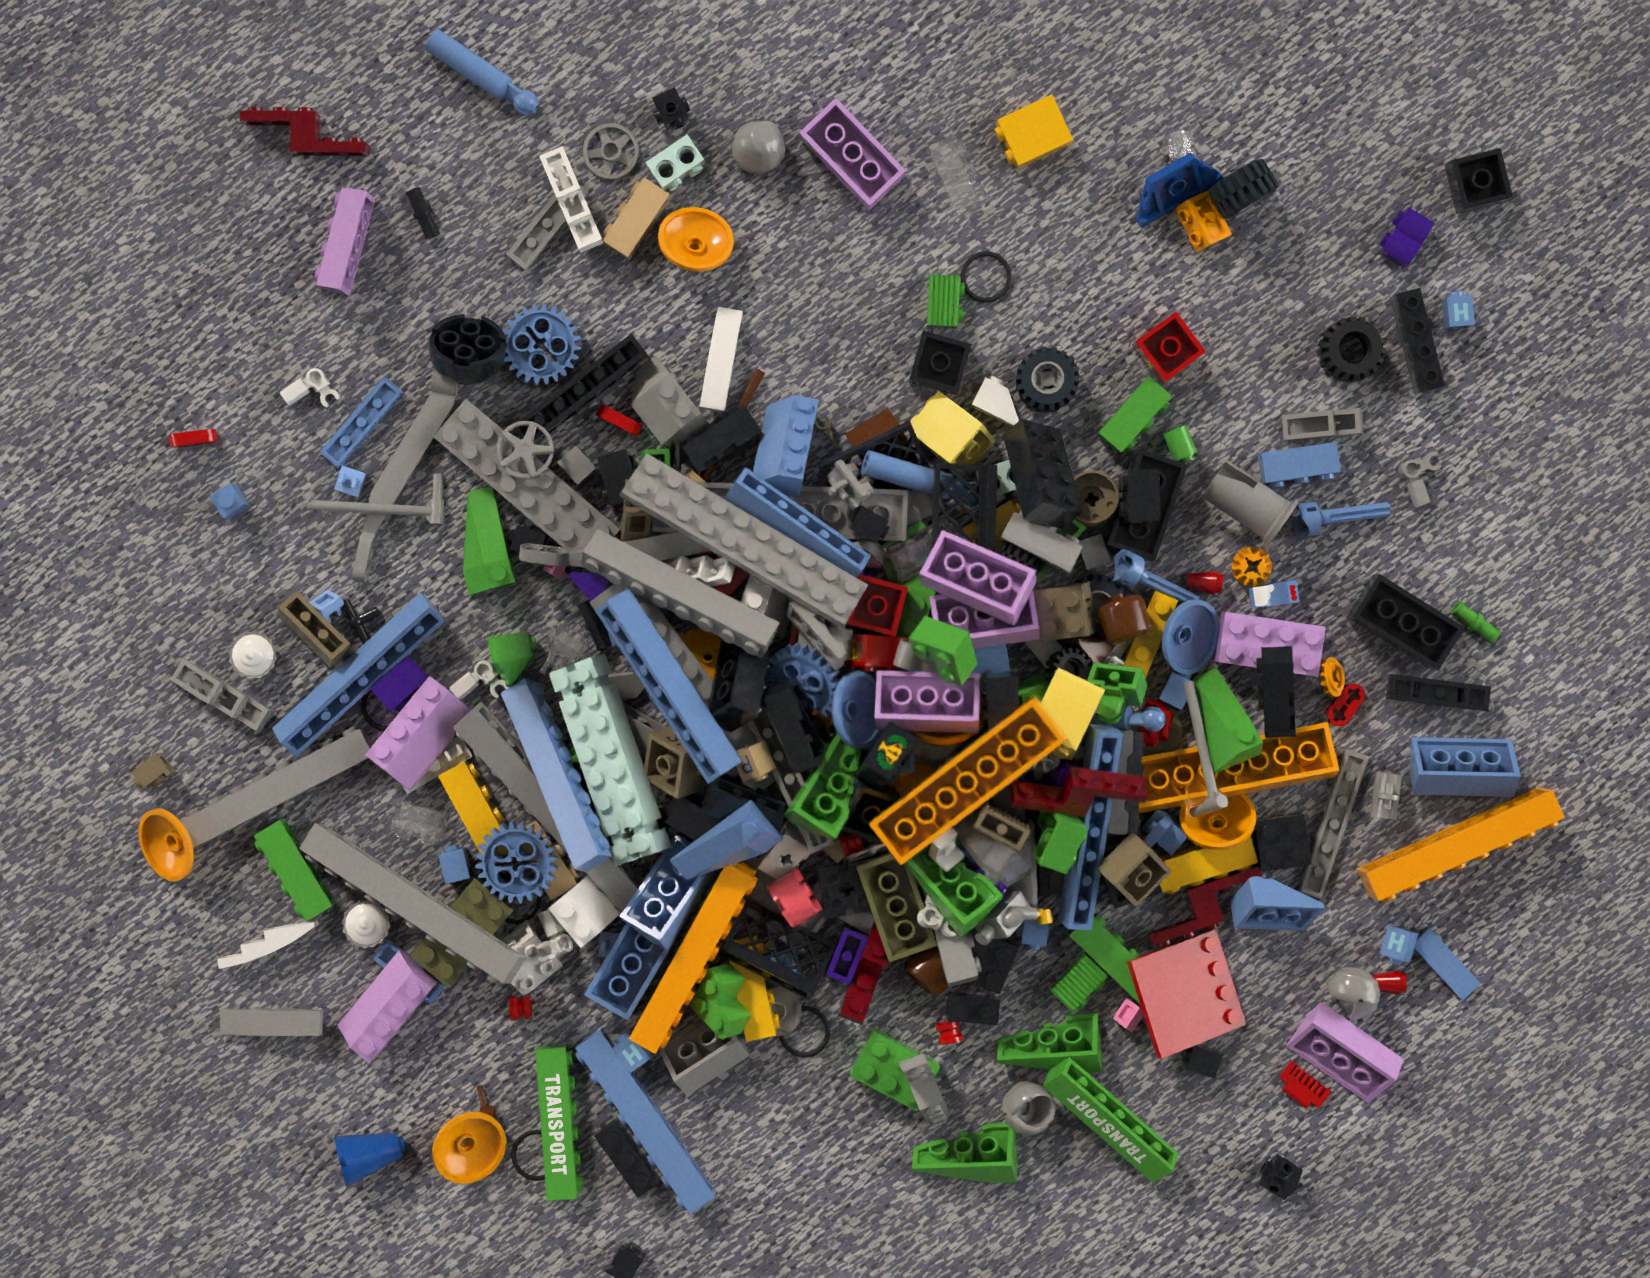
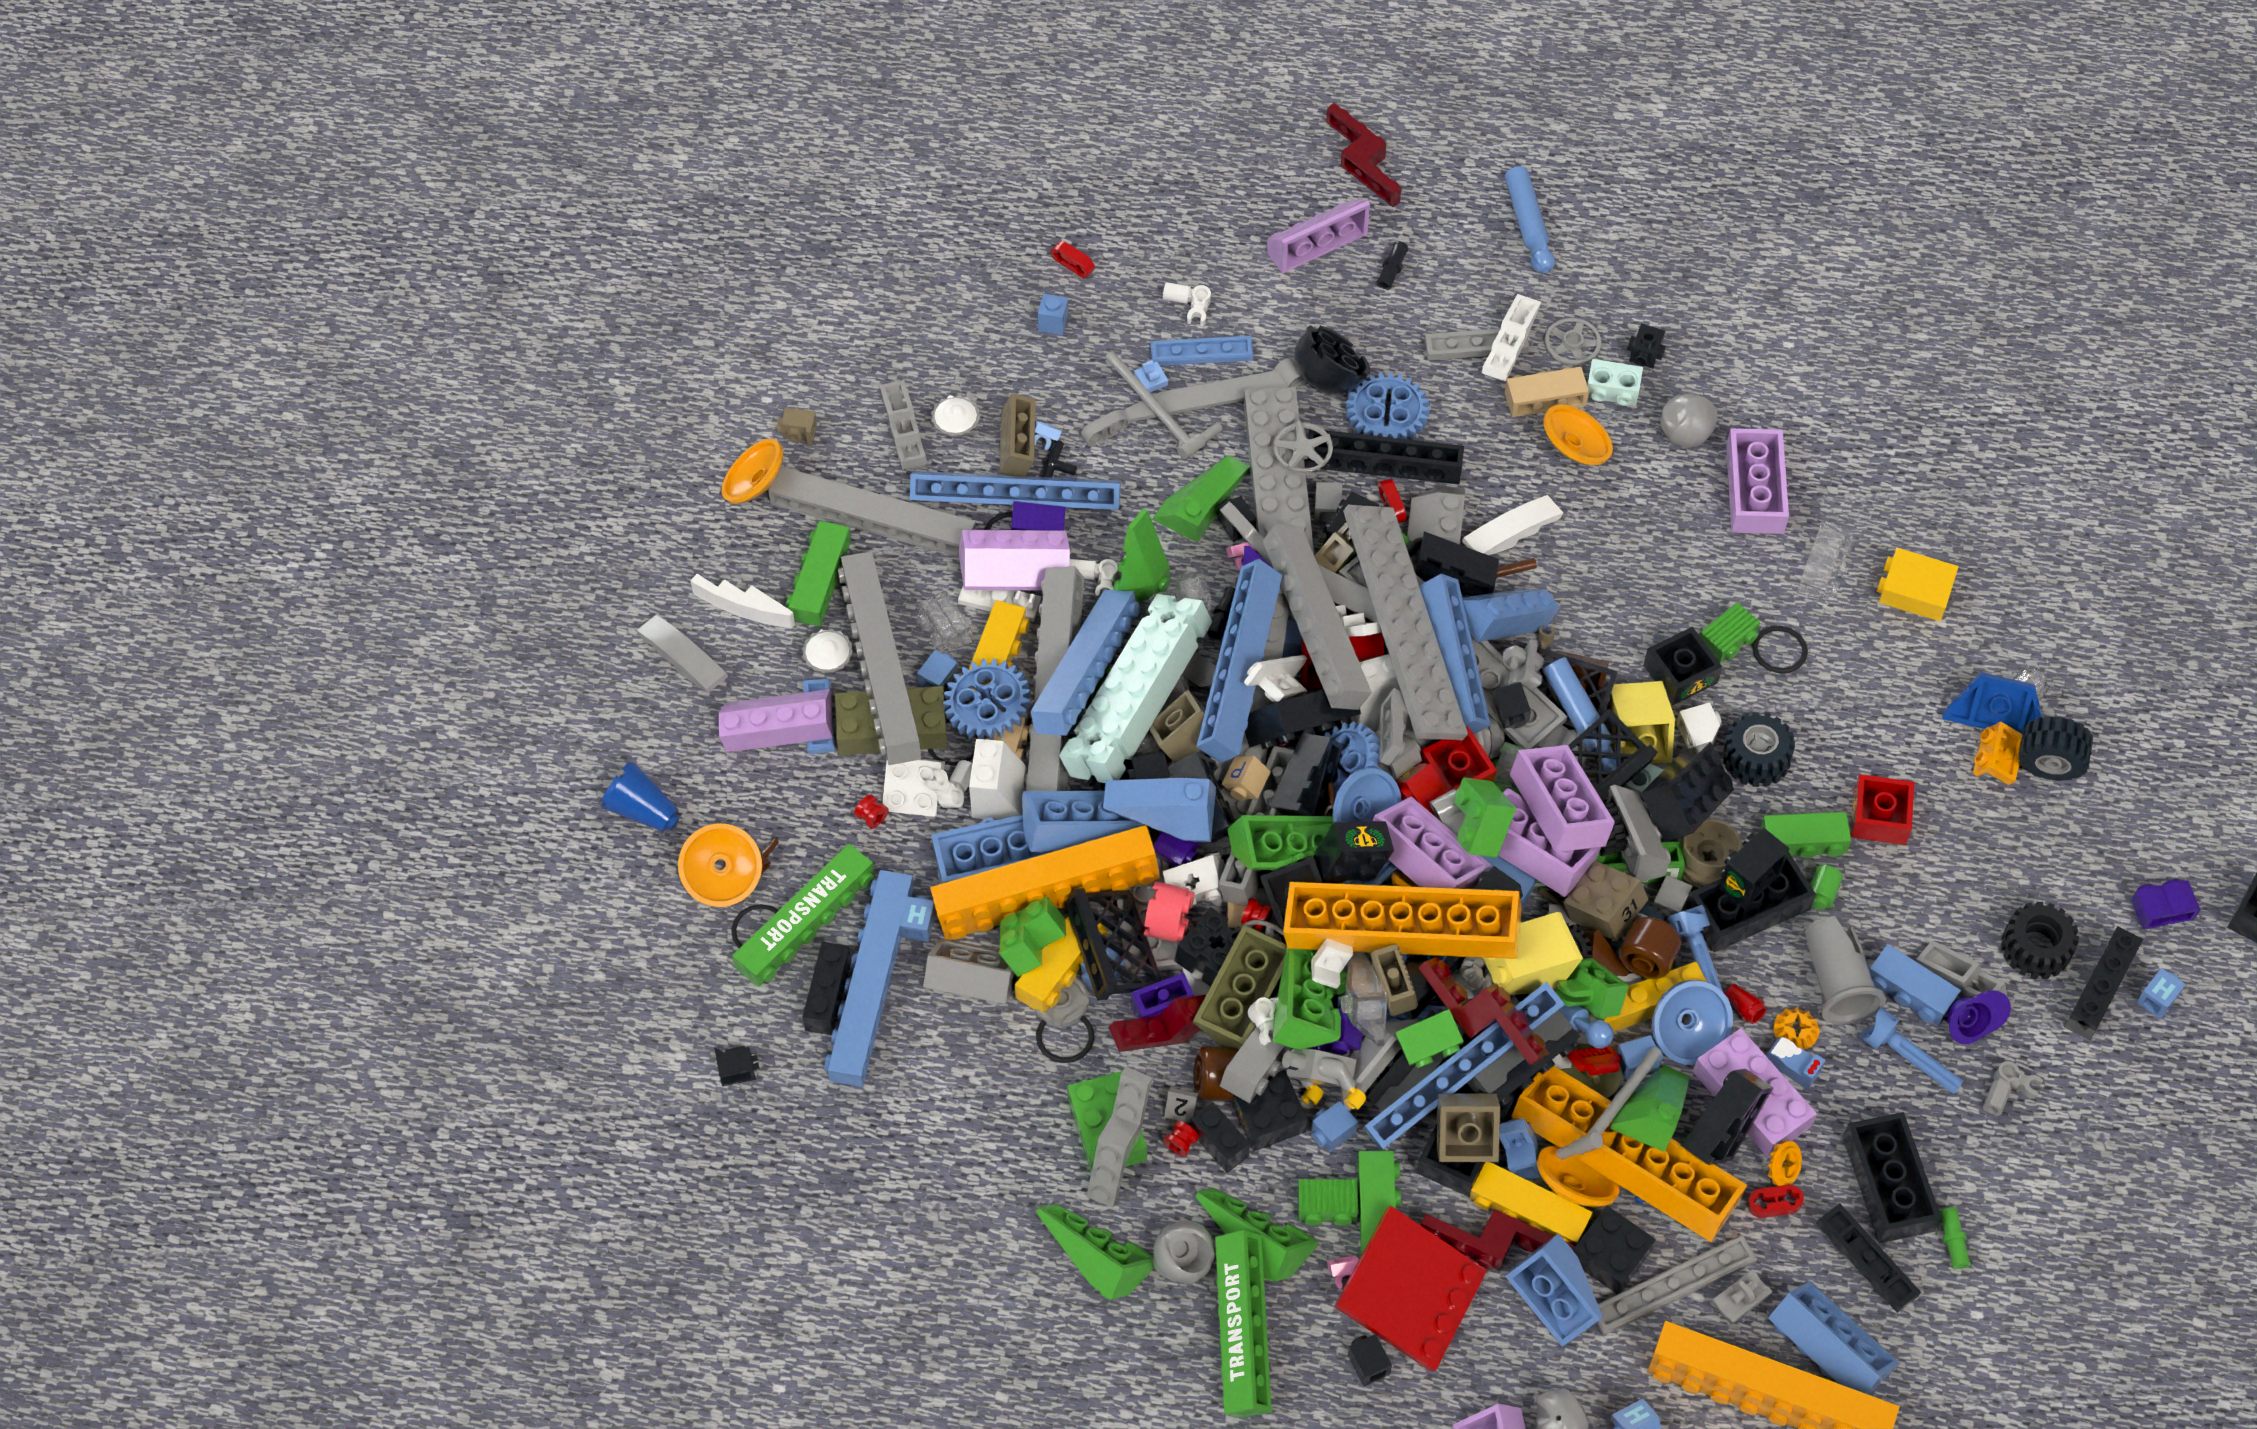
camera: 45 degrees right, 30 degrees down
(710, 671) = (1278, 677): none -> white bracket
(926, 1009) = (1180, 1105): none -> light grey tile
(1357, 450) = (1977, 1016): none -> dark purple piece

